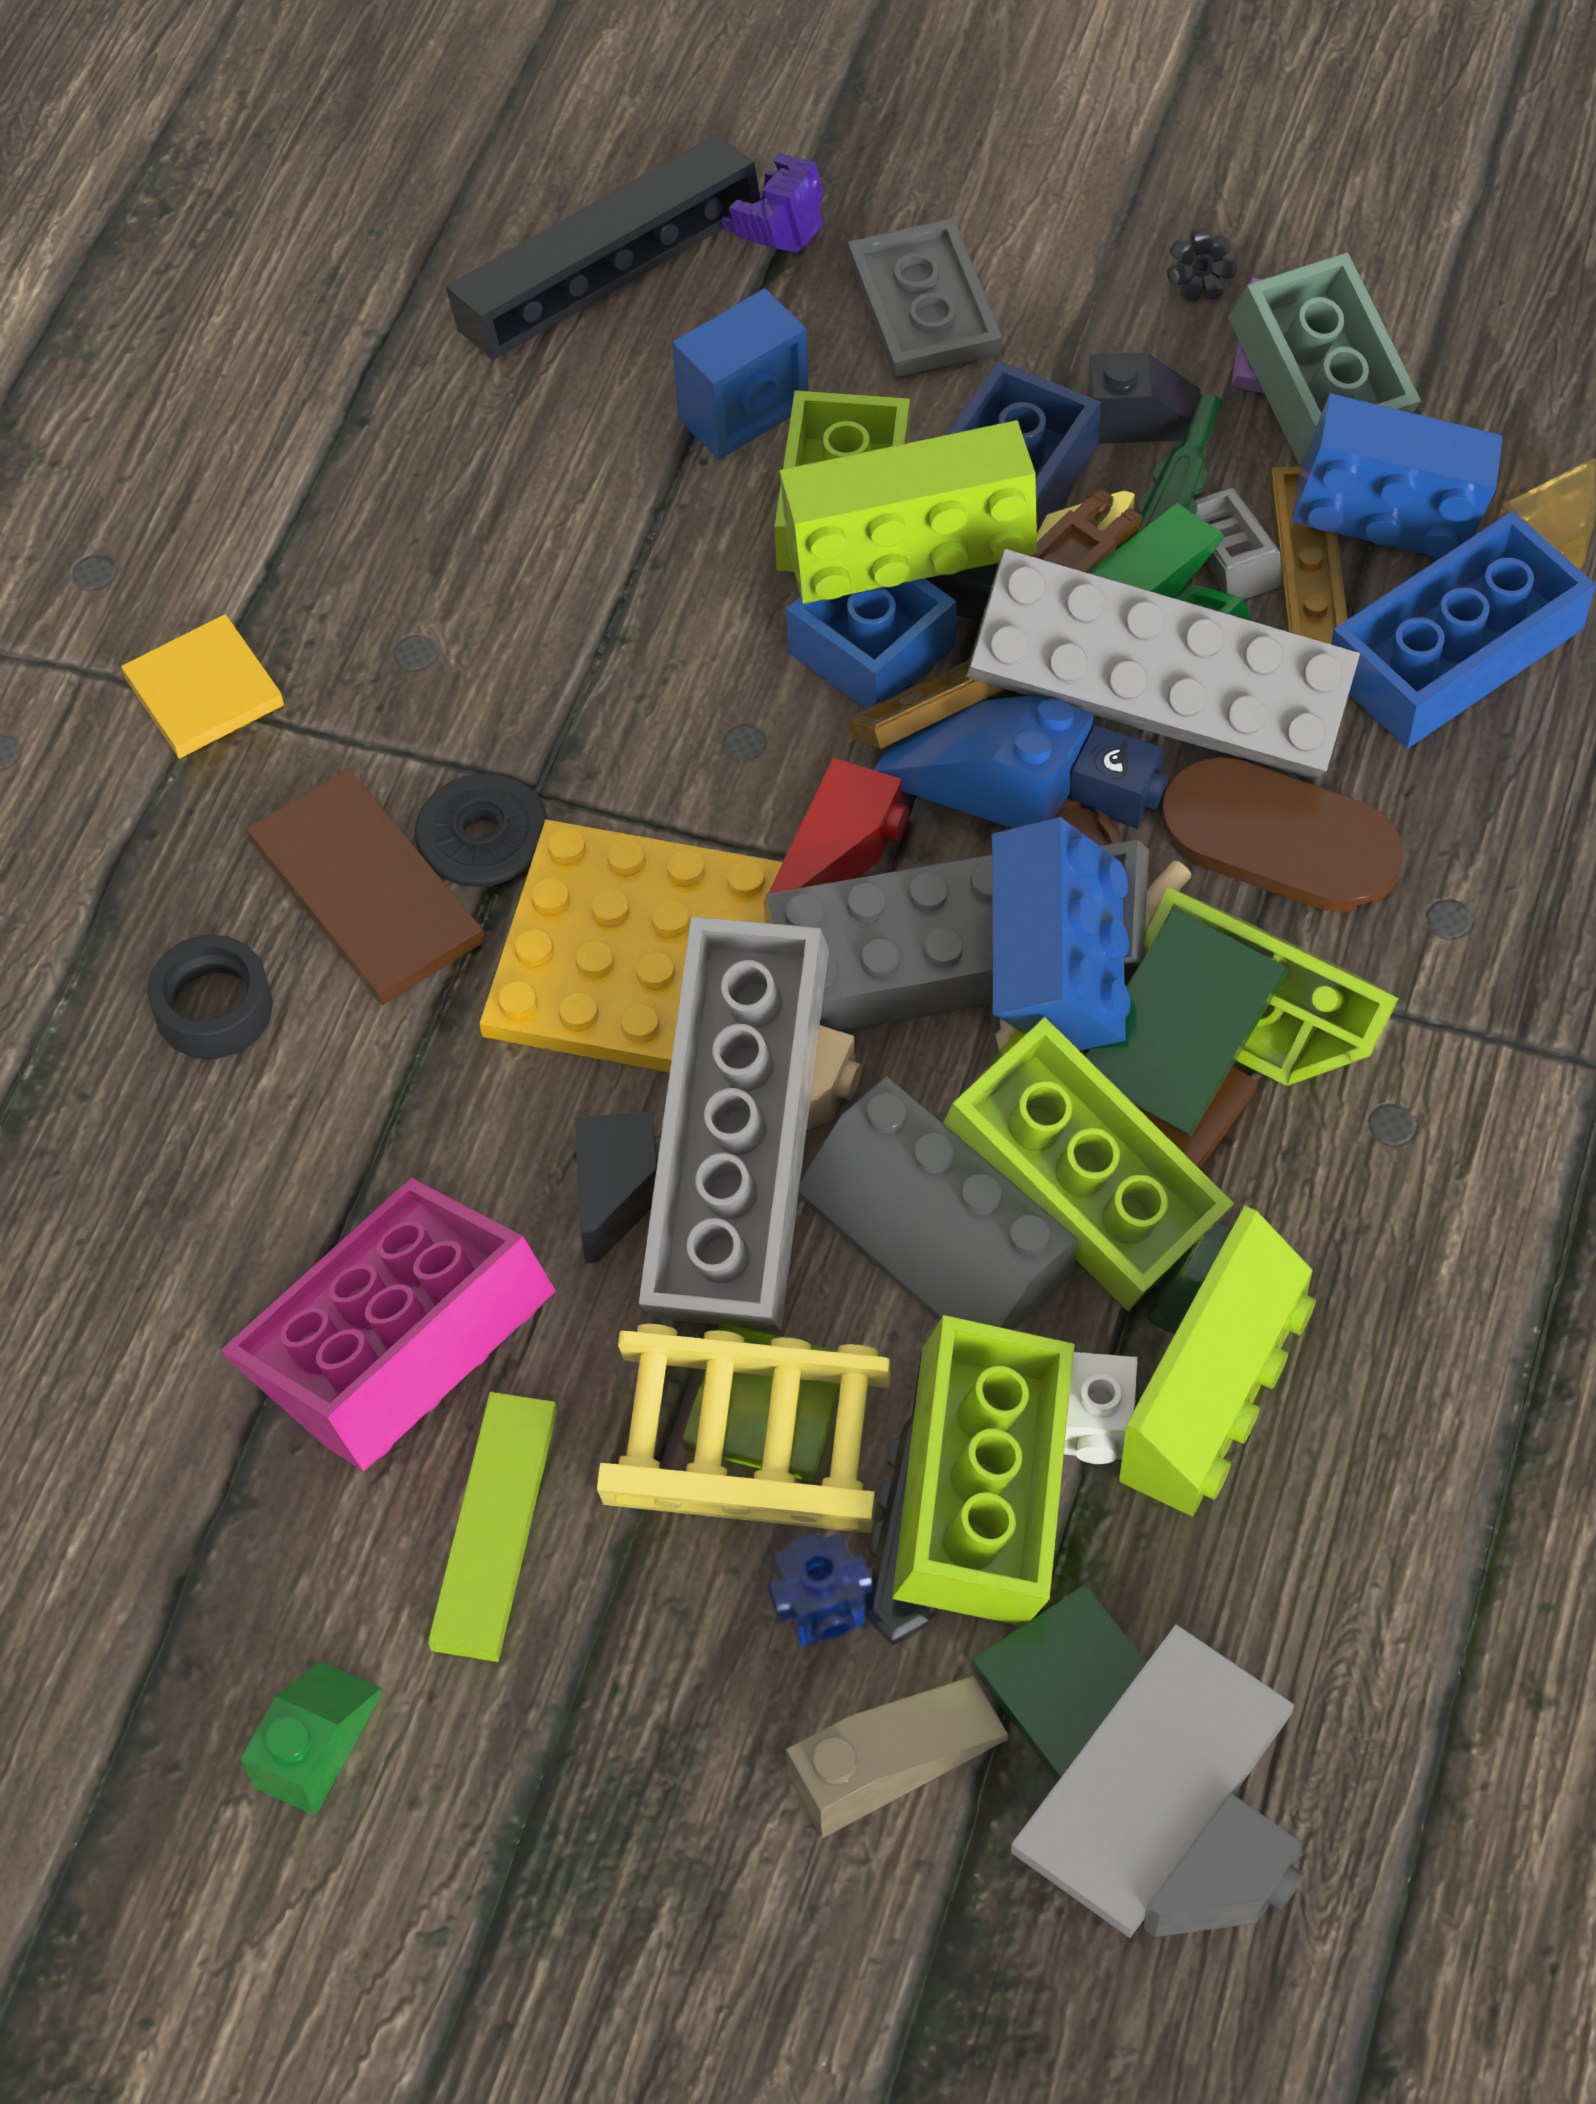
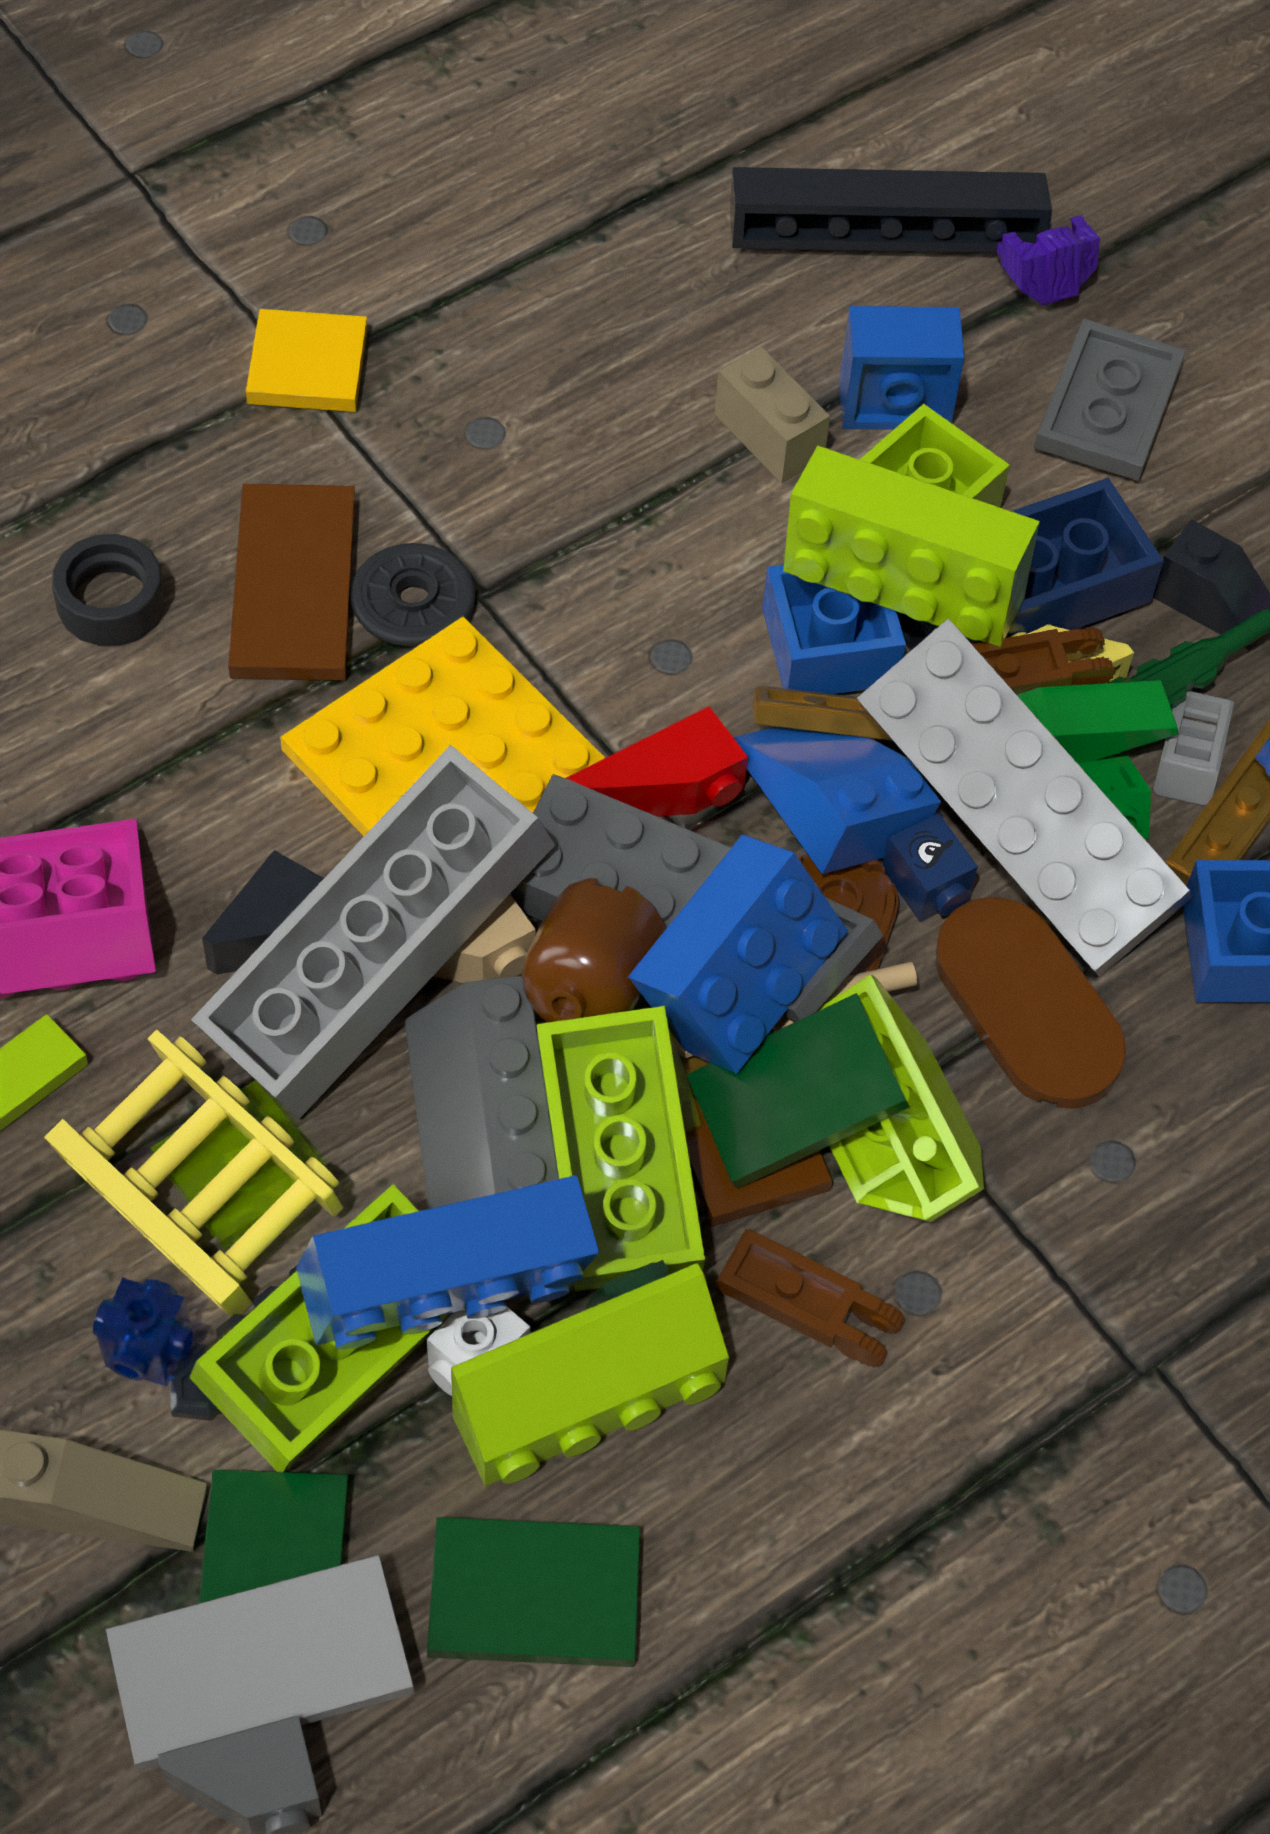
camera: 30 degrees right, 0 degrees up
(660, 481) = (770, 413): none -> dark tan brick
(929, 1022) = (588, 951): none -> reddish brown cylinder
(1059, 1344) = (446, 1262): none -> blue brick
(1308, 1568) = (534, 1592): none -> dark green tile
(1320, 1183) = (806, 1297): none -> reddish brown hinge

